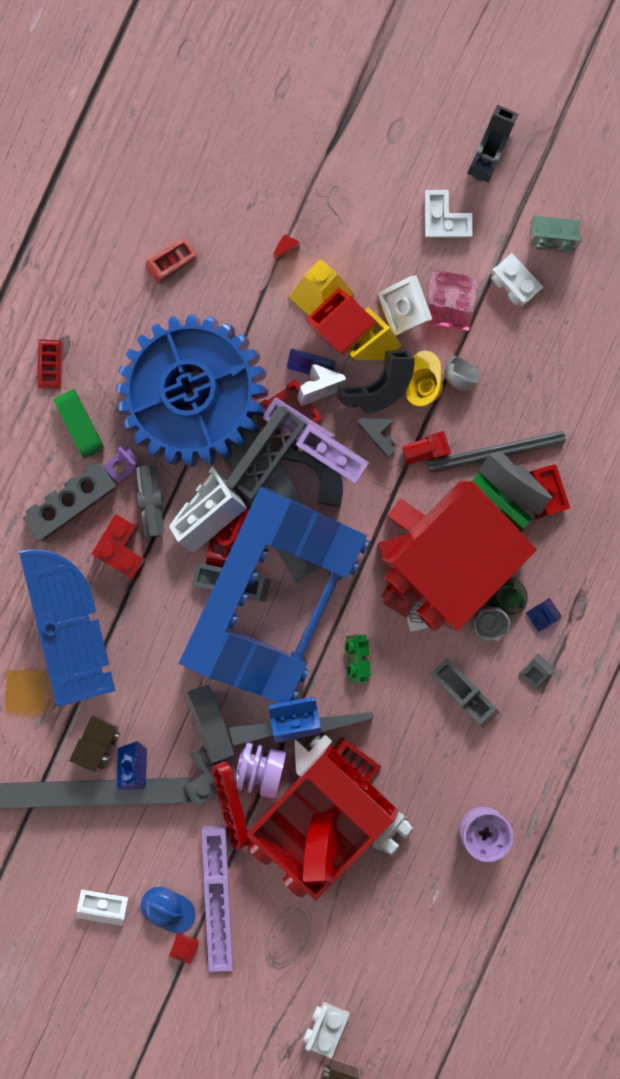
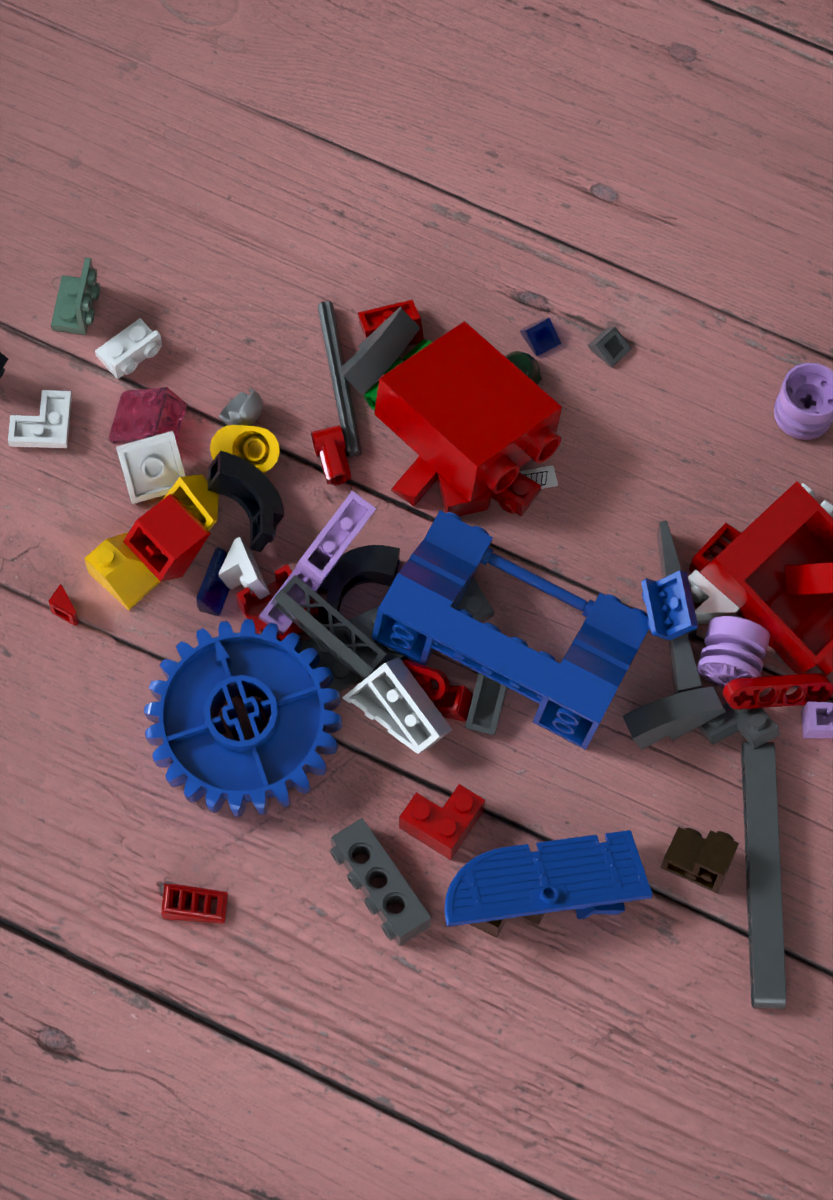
camera: 90 degrees left, 20 degrees down
(25, 691) = (628, 952): clear yellow piece -> none
(78, 423) = (276, 868): green beam -> none
(128, 458) = (327, 806): medium lavender bracket -> none
(131, 766) = (729, 813): clear blue slope -> none
(150, 500) = (383, 782): dark grey piece -> none
(175, 266) = (78, 764): red slope -> none
(355, 648) = (601, 544): green hinge -> none
(373, 429) = (307, 512): dark grey slope -> none
(465, 693) = (635, 423): dark grey slope -> none
(491, 623) = (554, 382): light grey hair -> none

